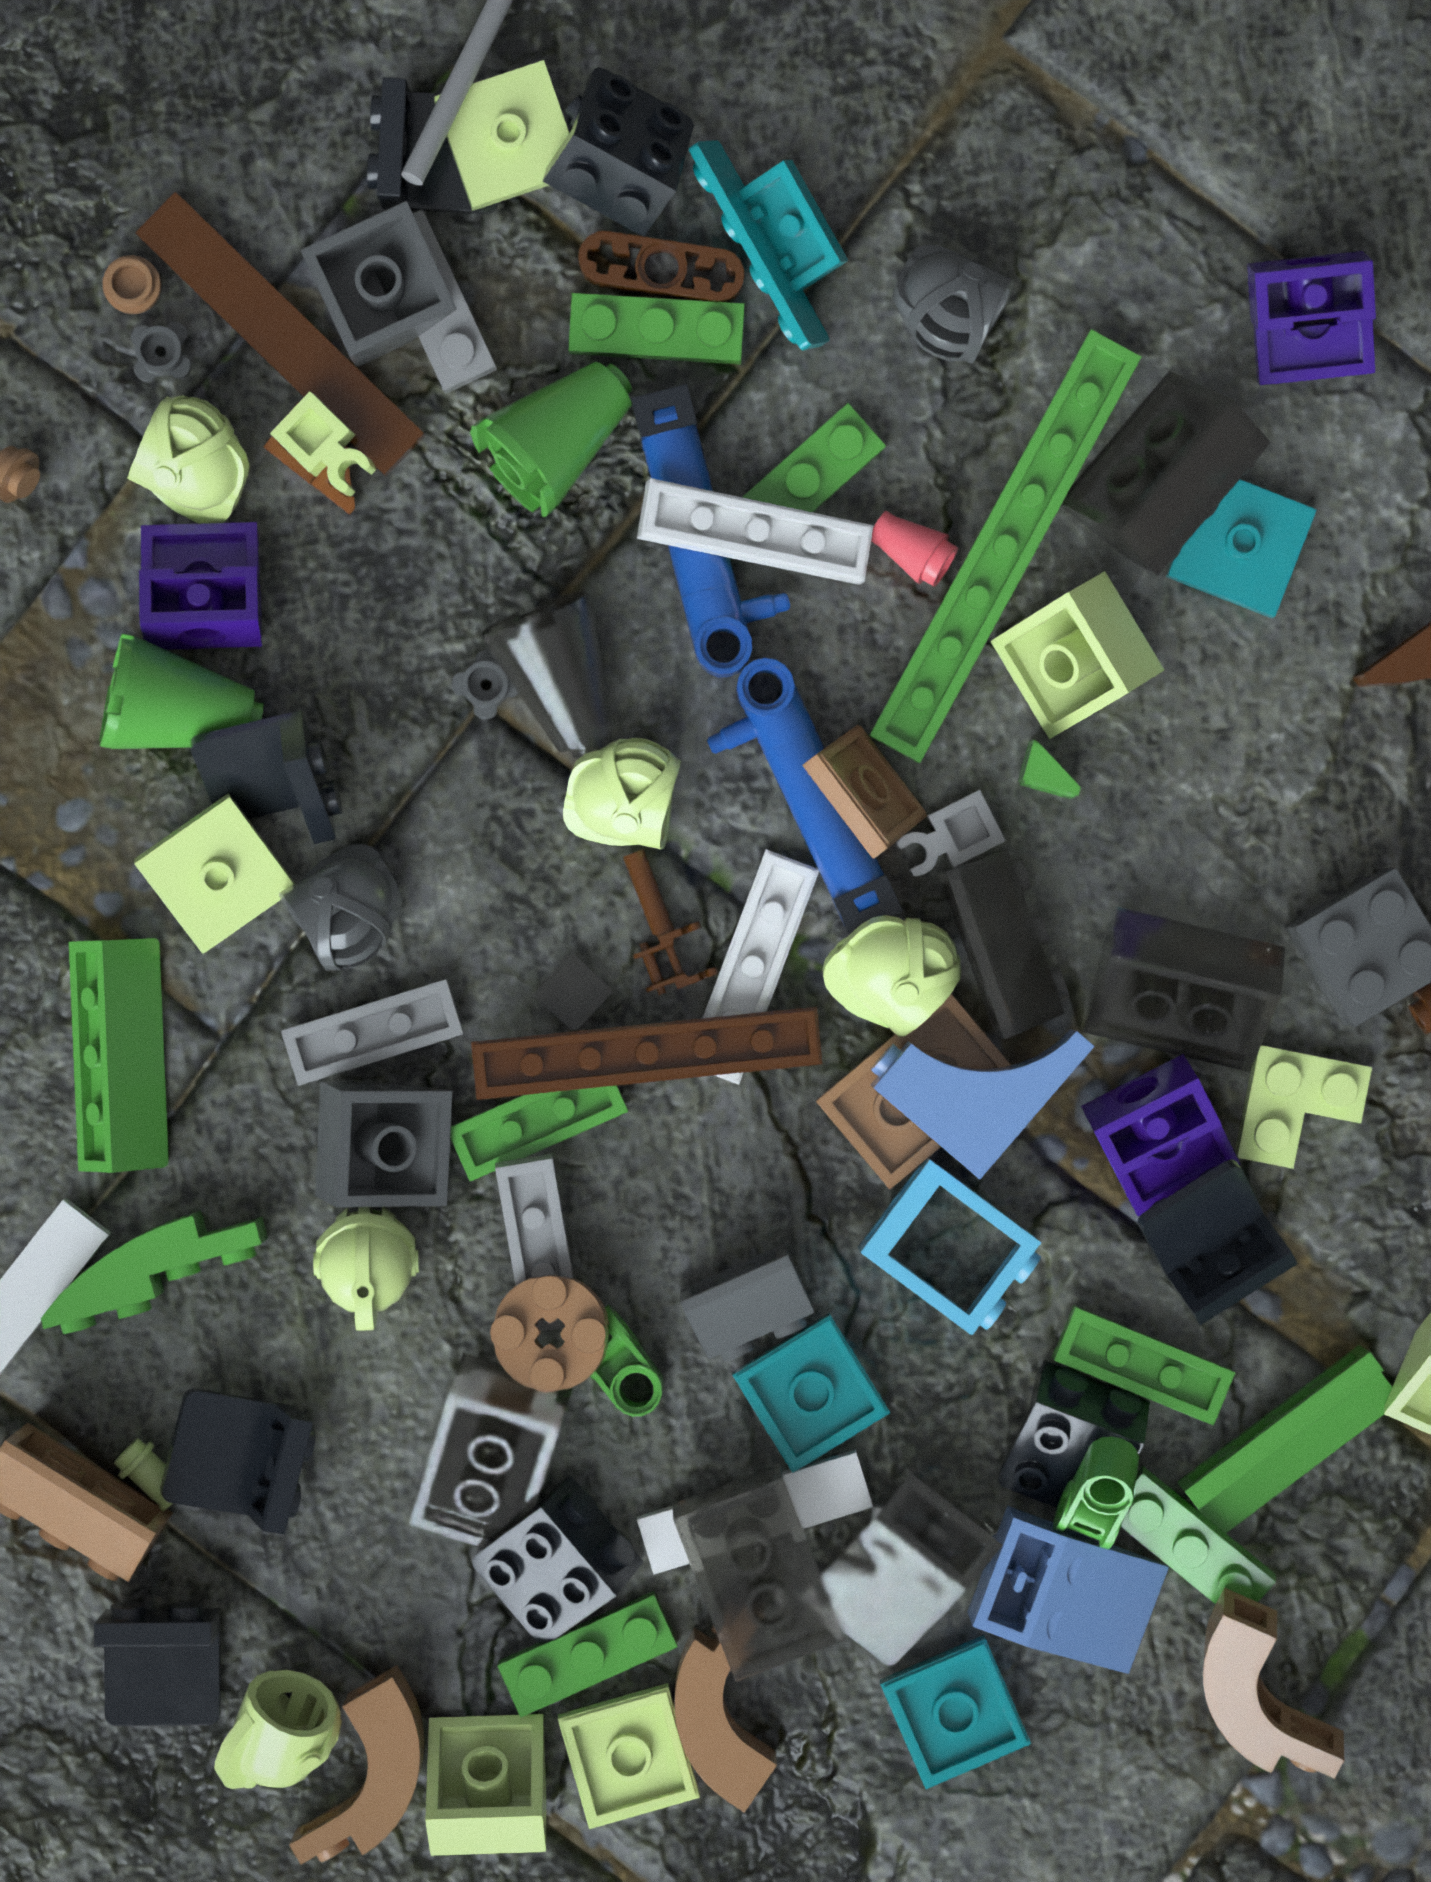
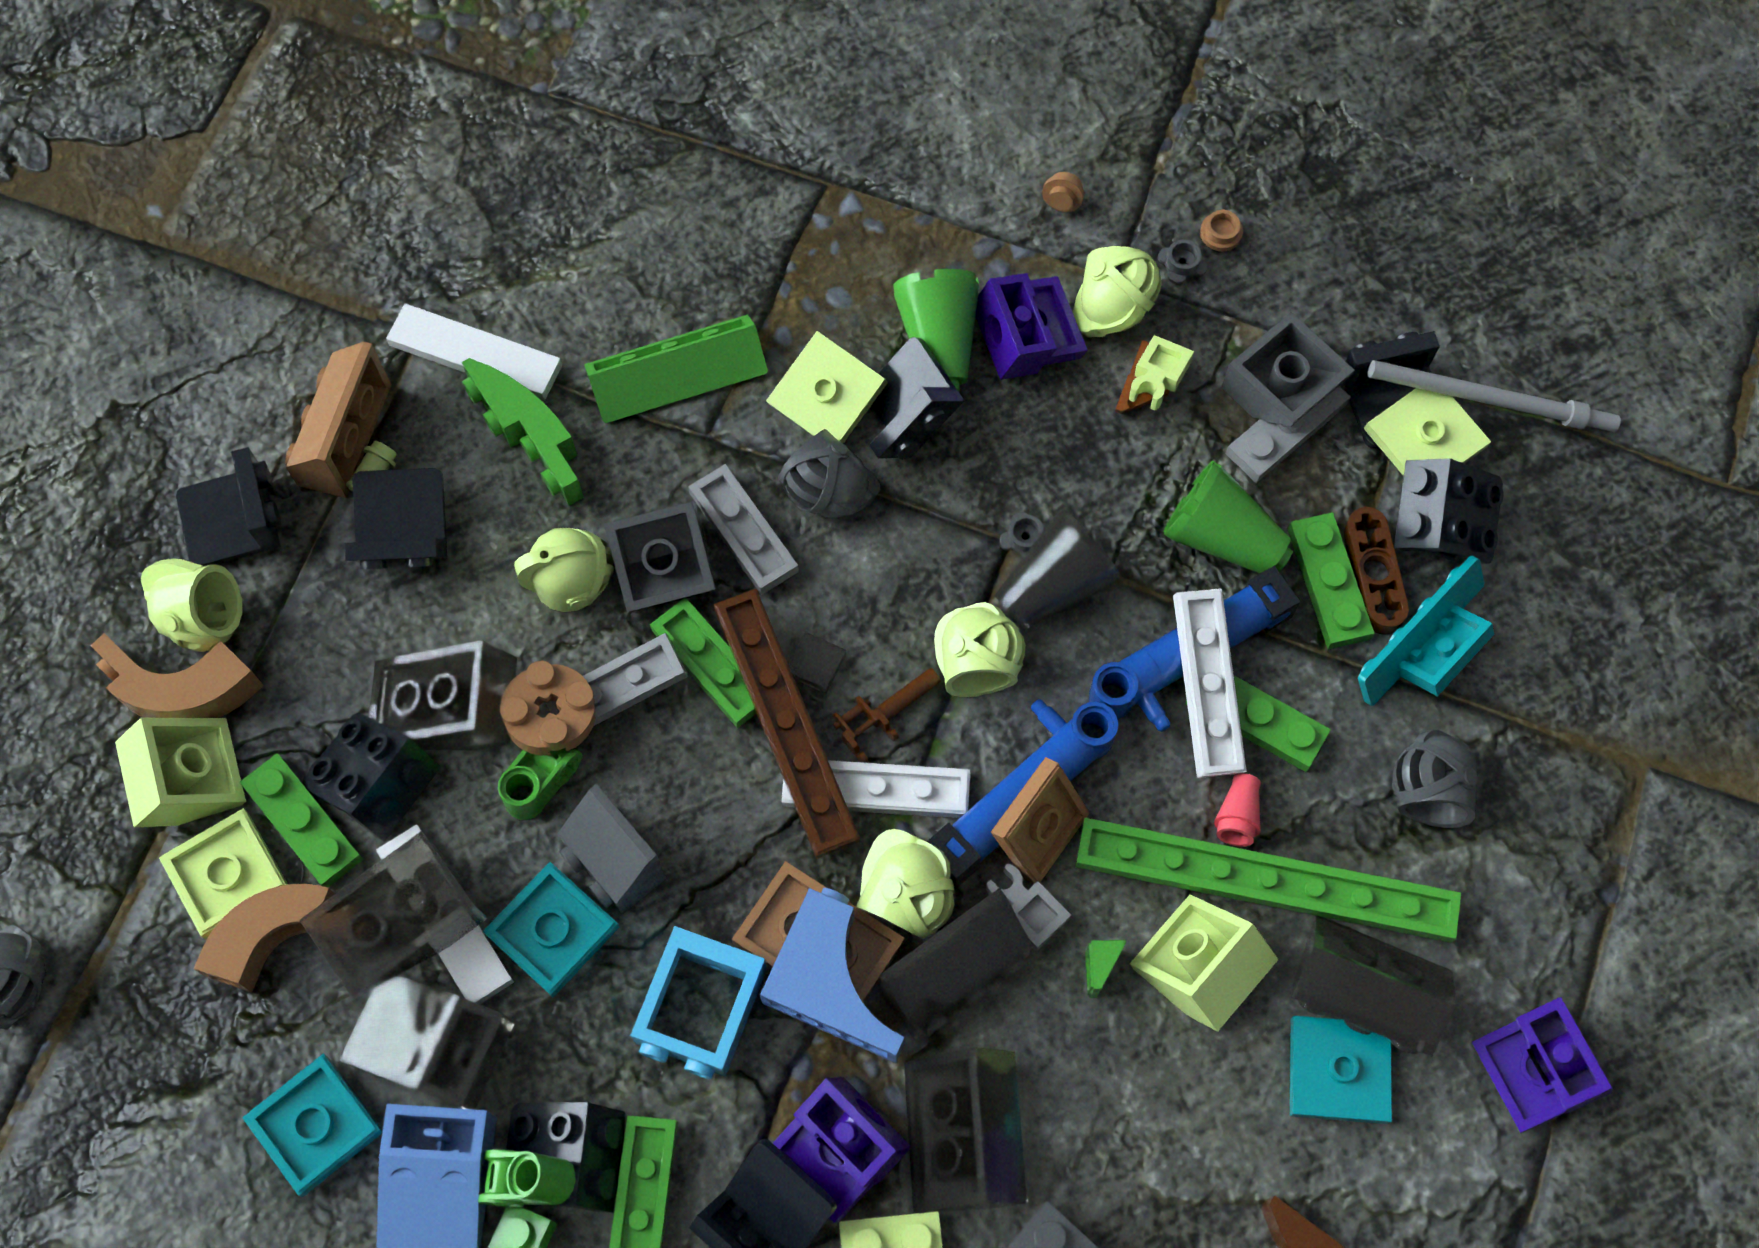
camera: 75 degrees right, 20 degrees down
(278, 331) = (1224, 334): reddish brown tile -> none

